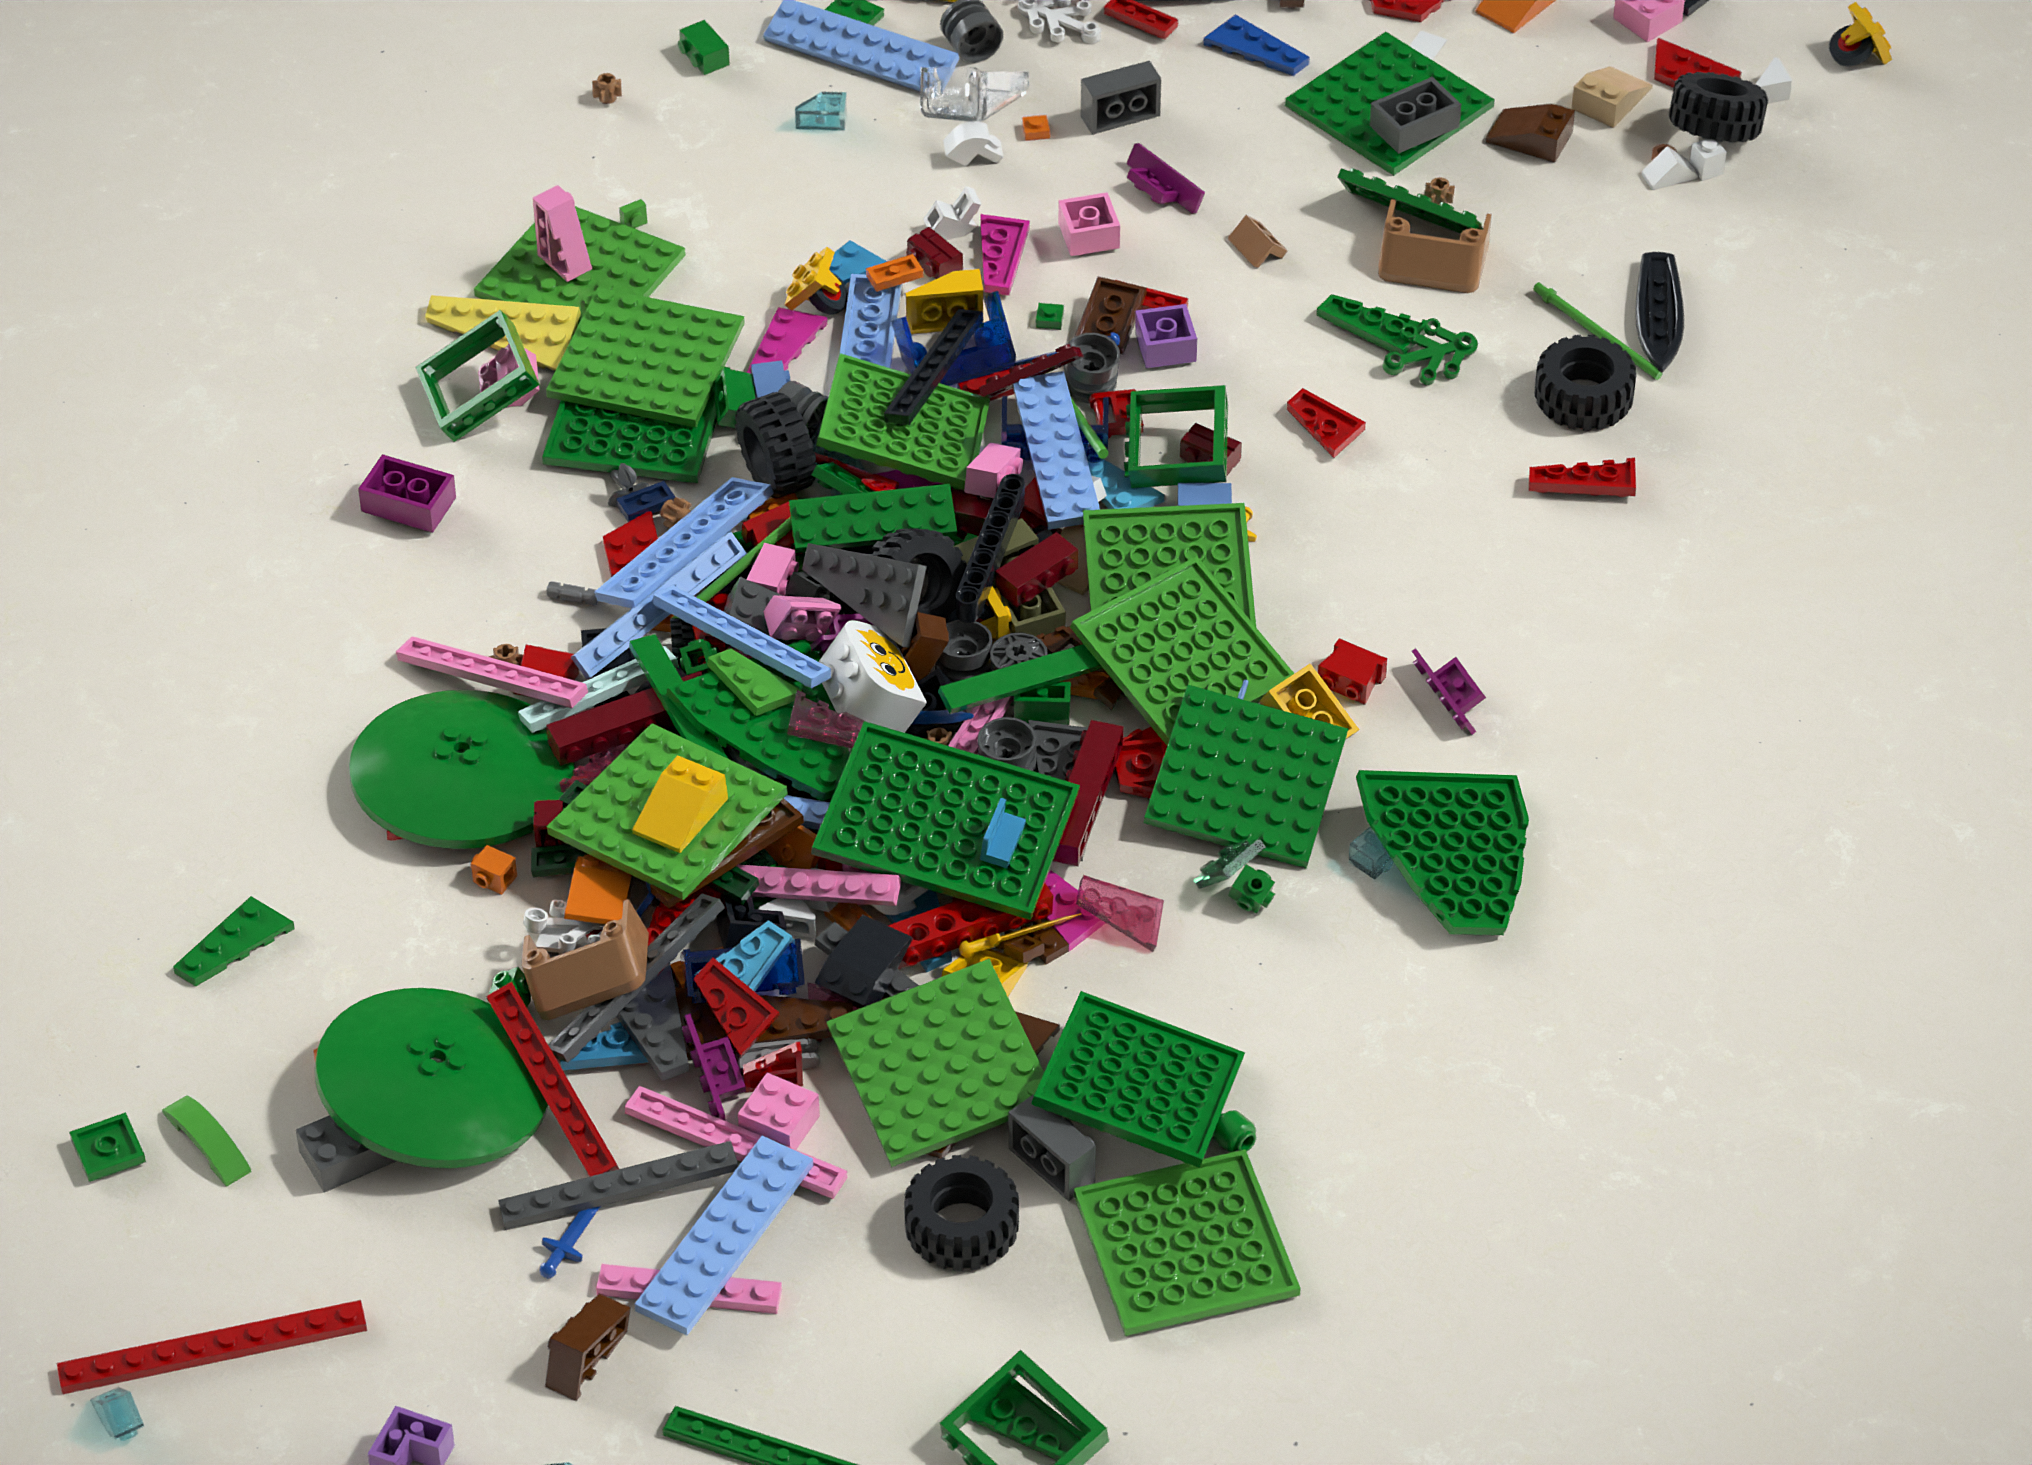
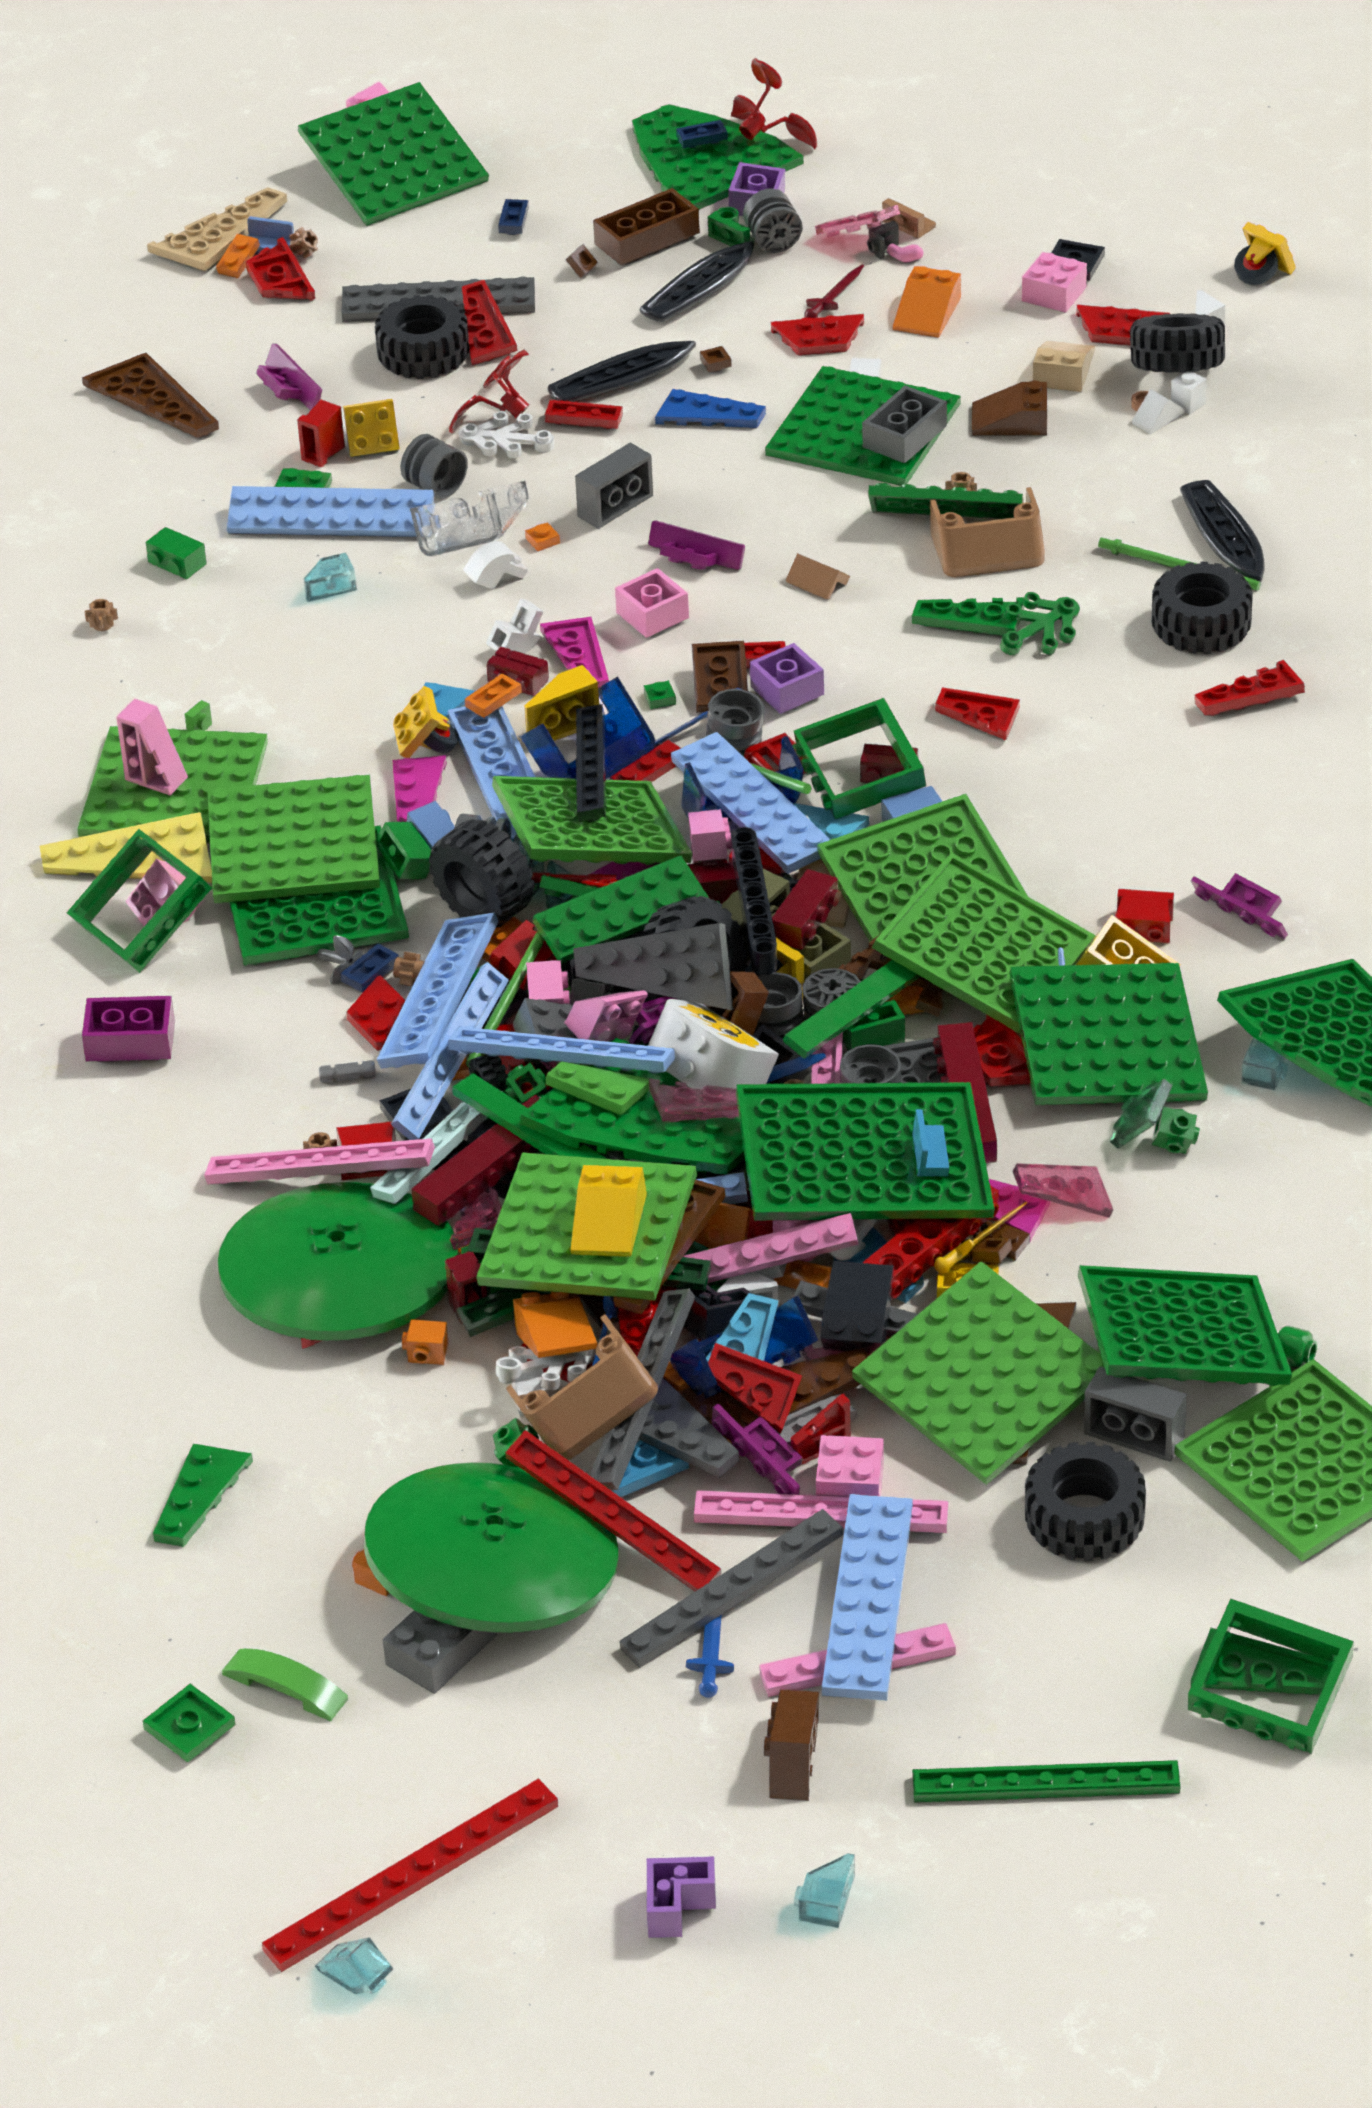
camera: 20 degrees left, 5 degrees down
(1041, 365) = (694, 732): dark red plate -> none

